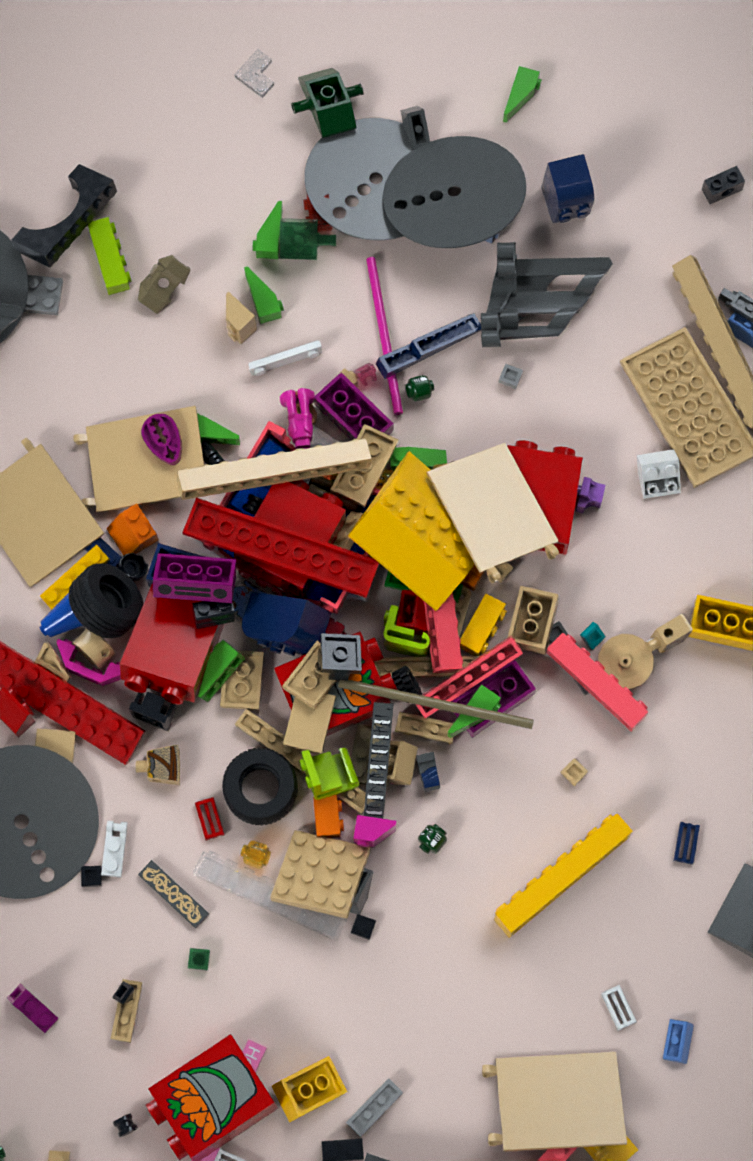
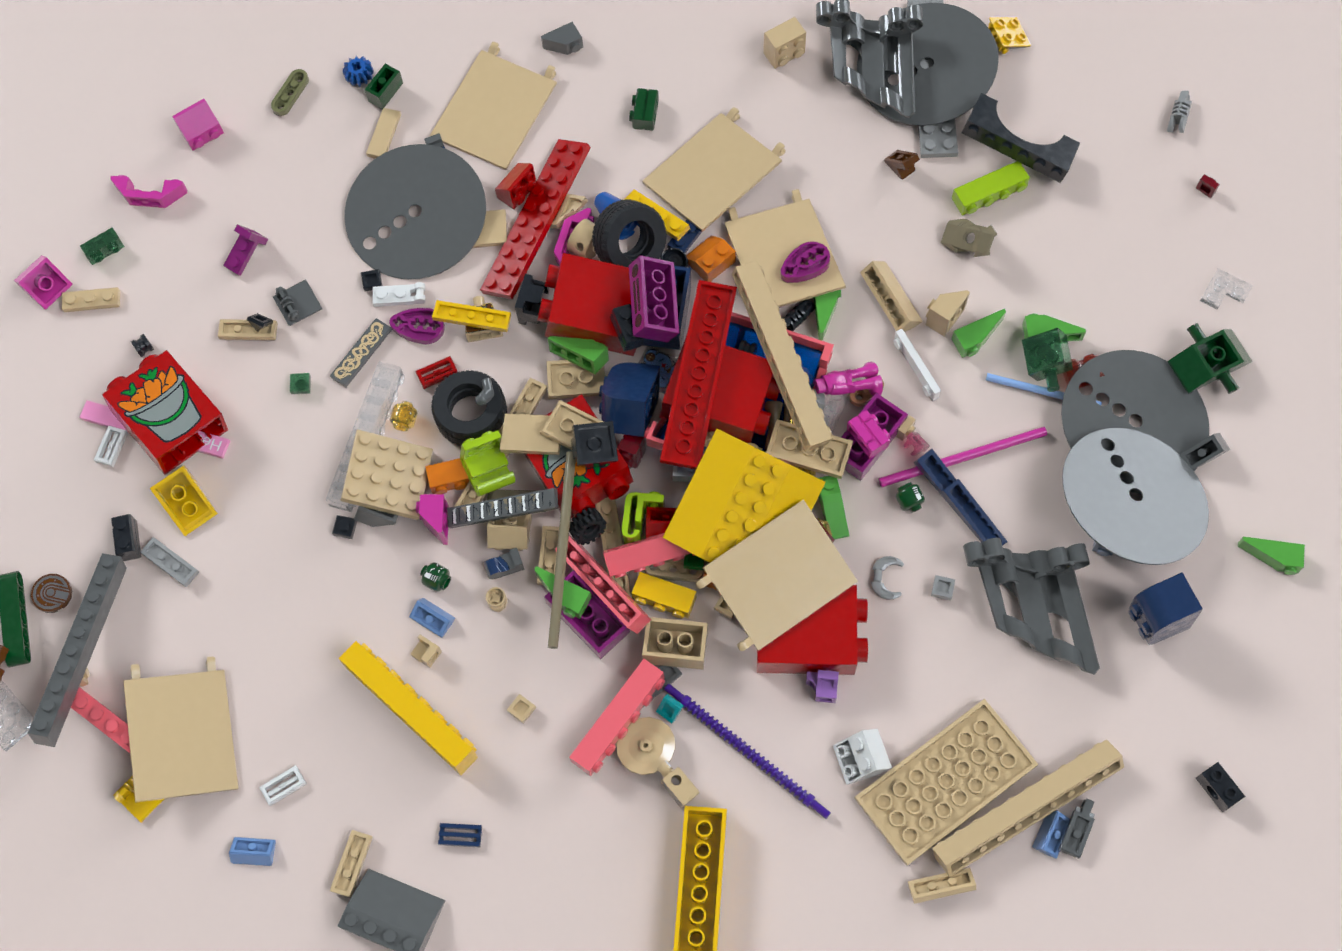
camera: 85 degrees right, 5 degrees down
(60, 68) = (1180, 112): none -> light grey hinge
(62, 331) = (902, 163): none -> reddish brown slope
(103, 956) = (296, 302): none -> dark grey hinge
(145, 63) = (1207, 186): none -> dark red plate
(162, 770) = (471, 316): none -> yellow plate
(164, 832) = (417, 335): none -> magenta piece
(208, 369) = (891, 296): none -> tan brick
(256, 760) = (486, 394): none -> dark grey arm
(325, 261) = (1026, 386): none -> light blue bar
(358, 408) = (868, 433): none -> dark pink brick
(465, 780) = (494, 595): none -> tan wheel
(470, 849) = (431, 617): none -> medium blue slope
(480, 428) = (878, 587): none -> light grey piece
(505, 857) = (426, 651): none -> tan panel
(691, 526) = (808, 799): none -> dark purple hose
(702, 946) = (351, 863): none -> tan plate

